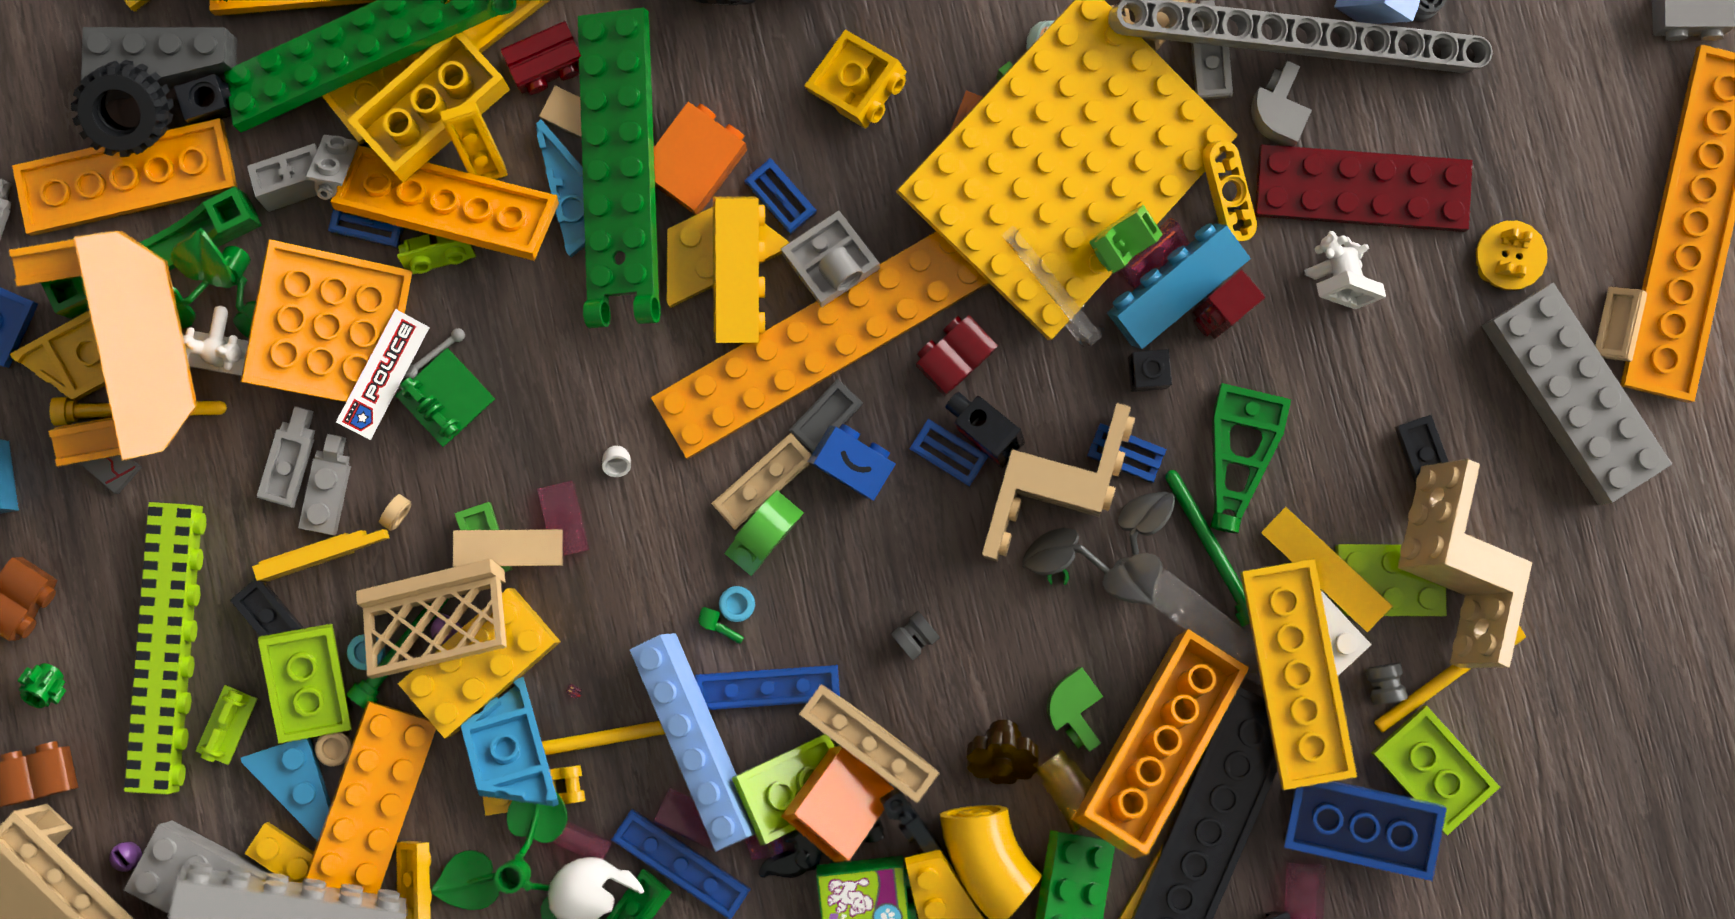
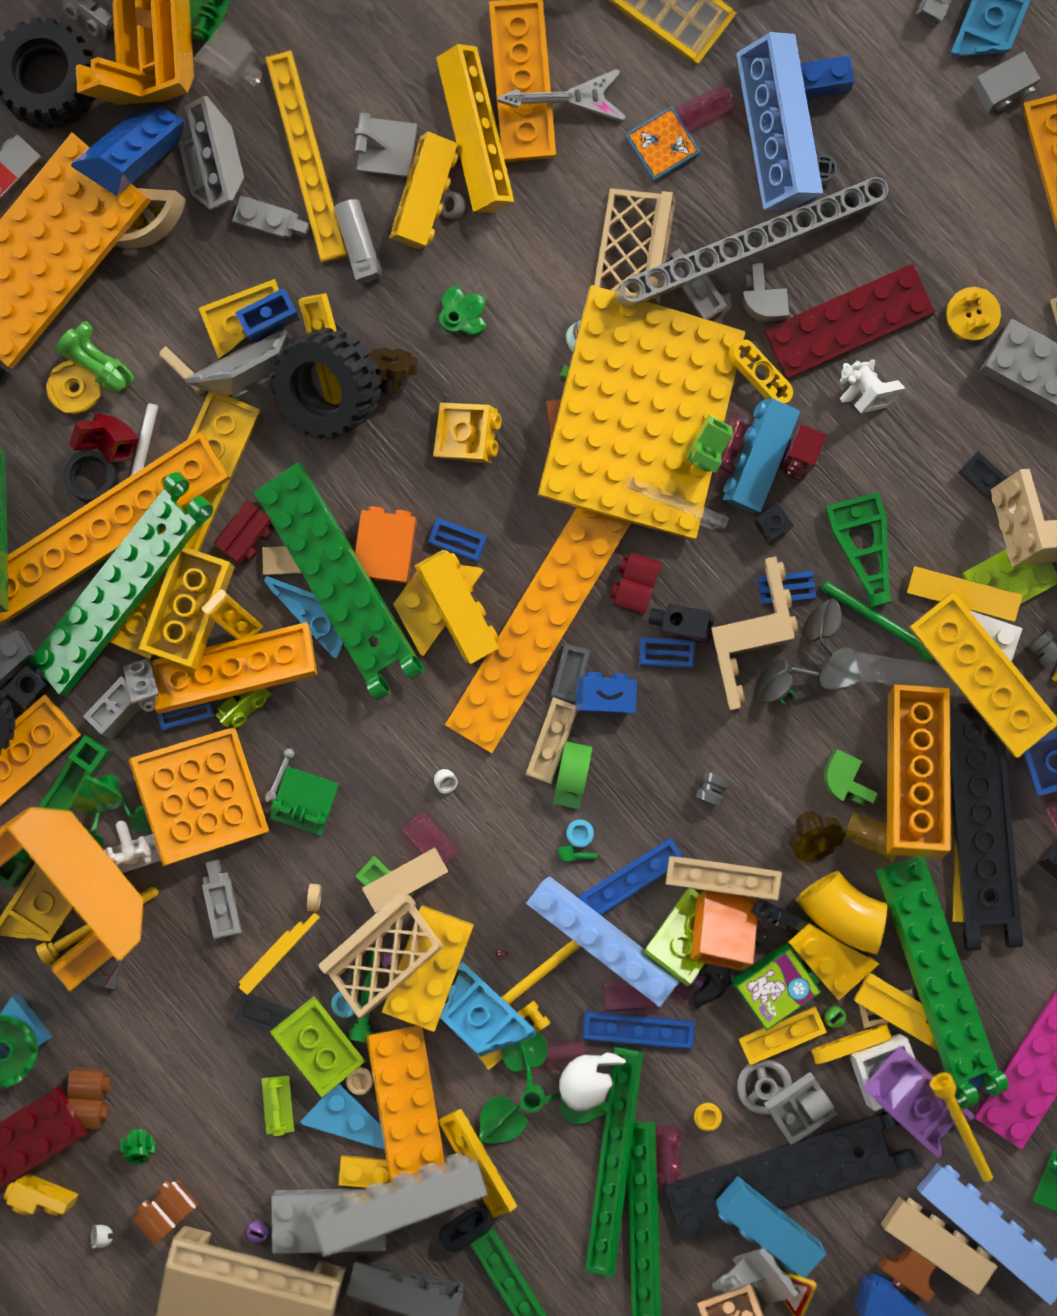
camera: 25 degrees left, 0 degrees up
(164, 648) = (207, 1076): lime brick -> none
(326, 488) = (257, 907): light grey hinge -> none
(382, 374) = (254, 808): white sticker -> none
(830, 258) = (515, 564): light grey plate -> none

